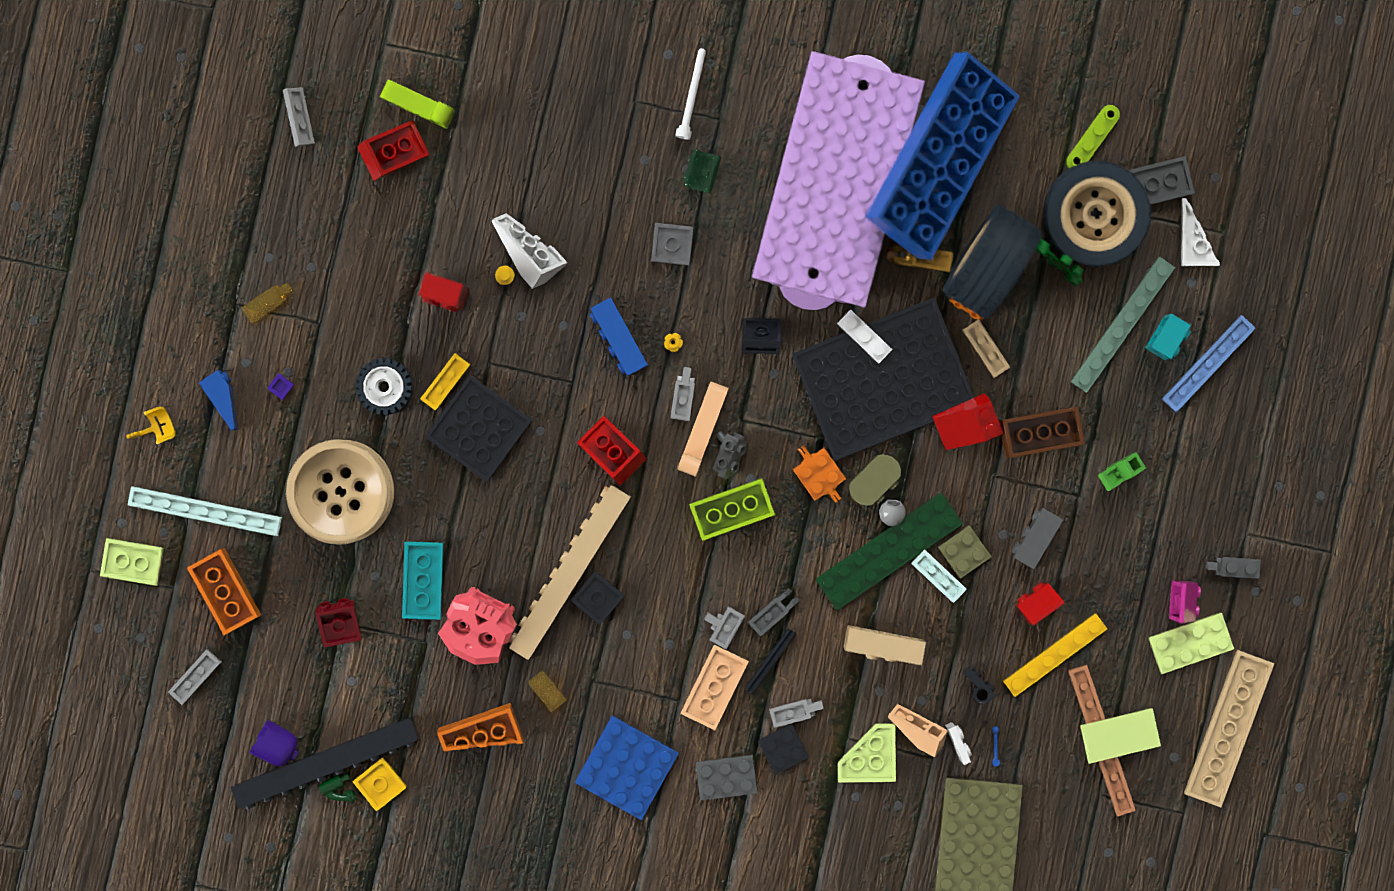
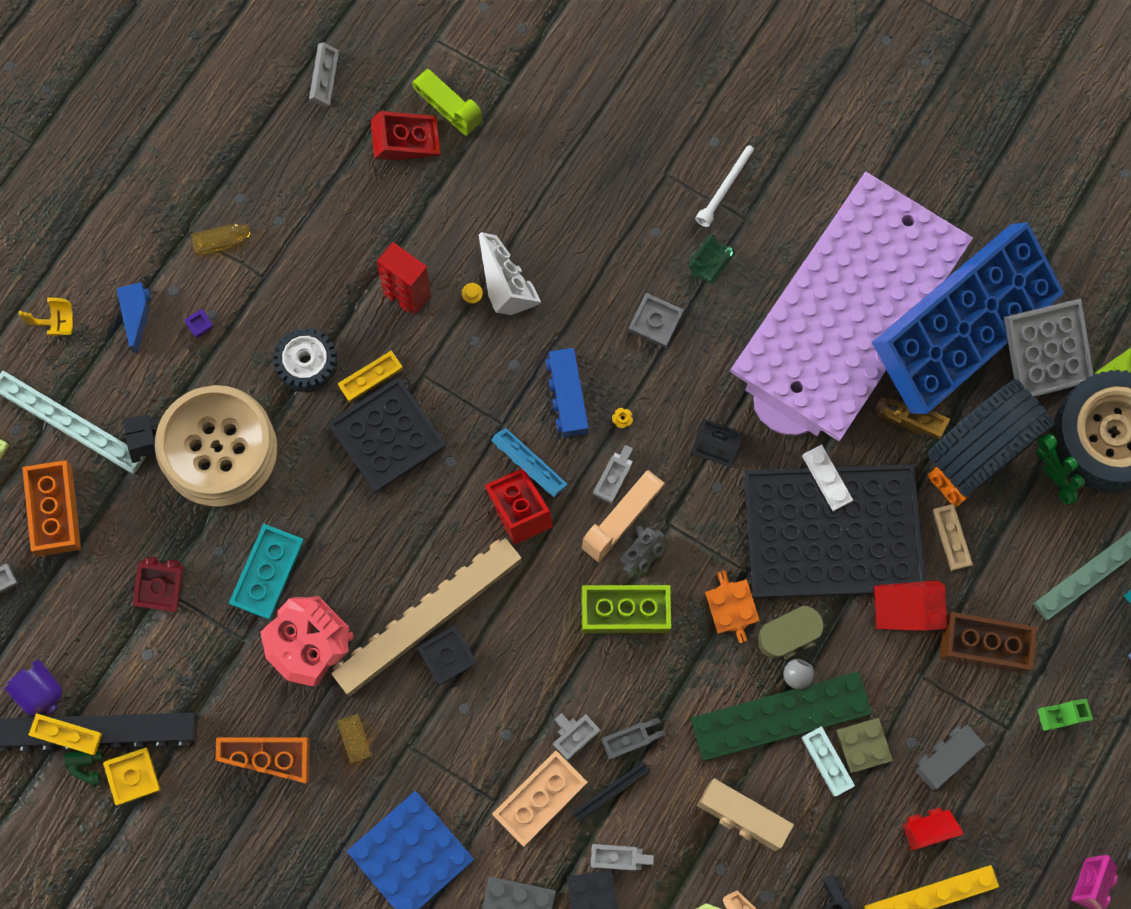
camera: 20 degrees right, 15 degrees down
(272, 504) = (140, 436): none -> black hips
(315, 772) = (65, 734): none -> yellow plate
(607, 410) = (529, 462): none -> dark azure plate
(1020, 154) = (1049, 347): none -> light grey tile

